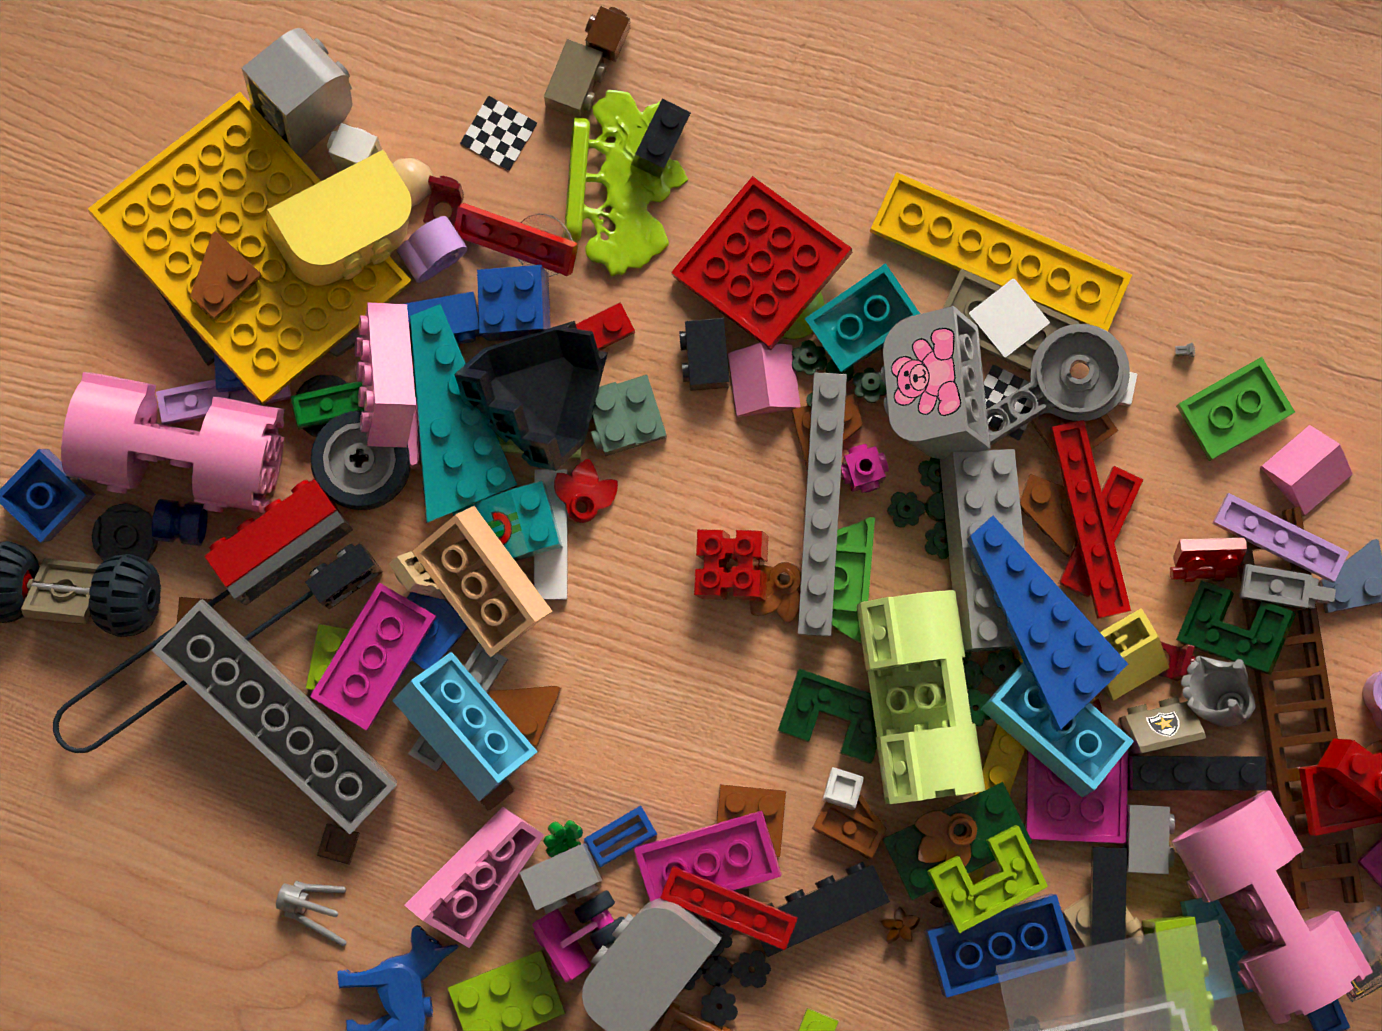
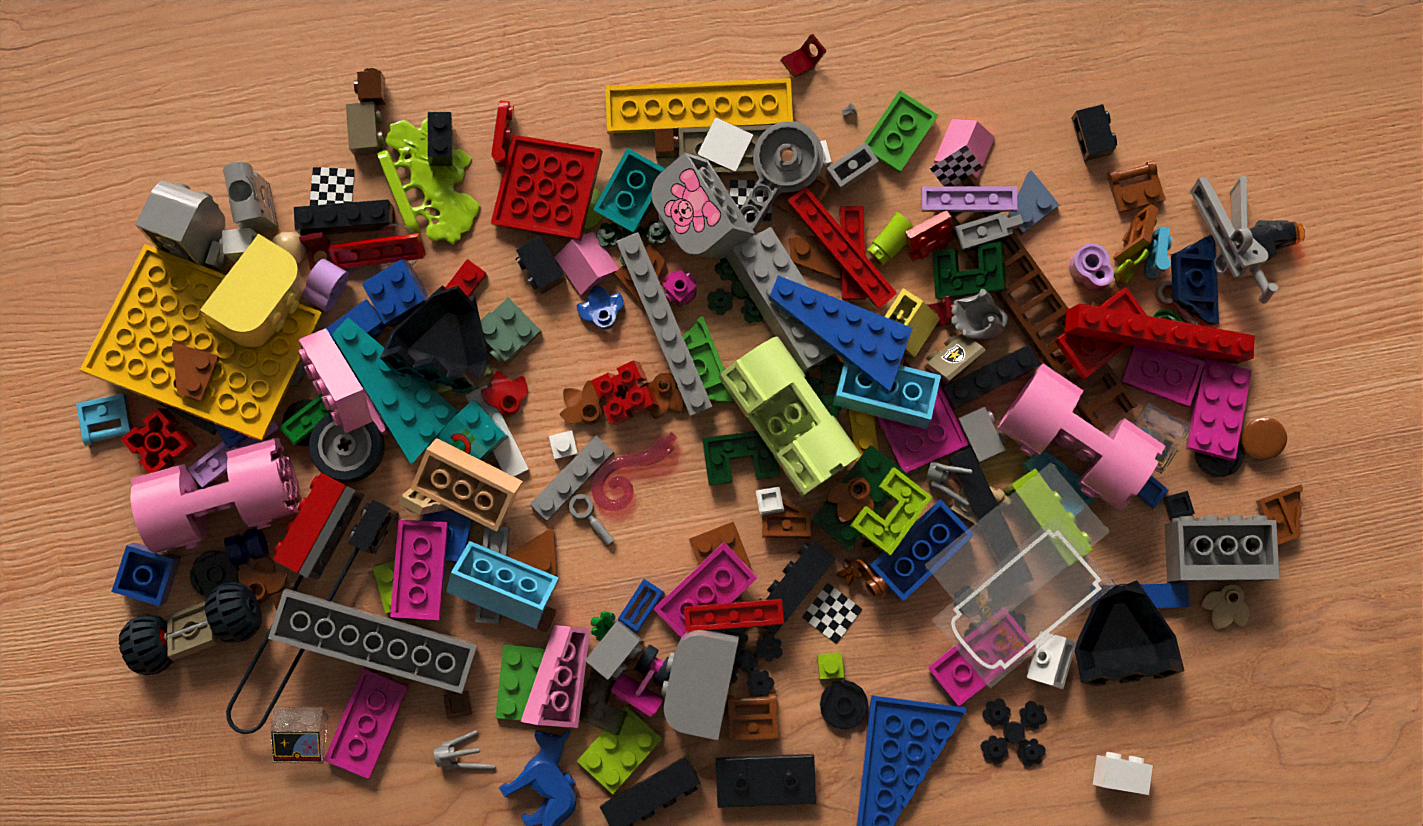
camera: 25 degrees left, 0 degrees up
(91, 271) = (104, 411): none -> medium azure plate
(123, 330) = (145, 439): none -> red brick
(129, 783) = (299, 734): none -> slope
(182, 567) = (264, 576): none -> dark orange plate
(217, 811) = (366, 723): none -> dark pink plate
(316, 149) = (215, 257): none -> white plate
(393, 98) = (249, 198): none -> light grey piece
(425, 850) = (516, 679): none -> bright green plate
(495, 177) = (343, 217): none -> black brick
(502, 933) = (594, 705): none -> clear smoke tile
(614, 636) = (571, 478): none -> light grey plate
(614, 706) = (595, 523): none -> light grey piece
(624, 590) = (563, 445): none -> white plate
(668, 549) = (579, 402): none -> dark orange plate
(729, 658) = (652, 455): none -> clear pink plant
(740, 168) = (502, 133): none -> red plate
(754, 439) = (599, 305): none -> blue plate
(851, 965) = (831, 613): none -> sticker
(921, 960) = (875, 585): none -> dark orange plate
(936, 279) = (665, 143): none -> reddish brown plate
(1071, 861) = (939, 473): none -> light grey plant
(1152, 425) = (851, 168): none -> light grey brick
(1156, 538) = (891, 239): none -> lime plant
(1159, 258) = (802, 59): none -> dark red bracket
(1284, 489) = (956, 167): none -> sticker

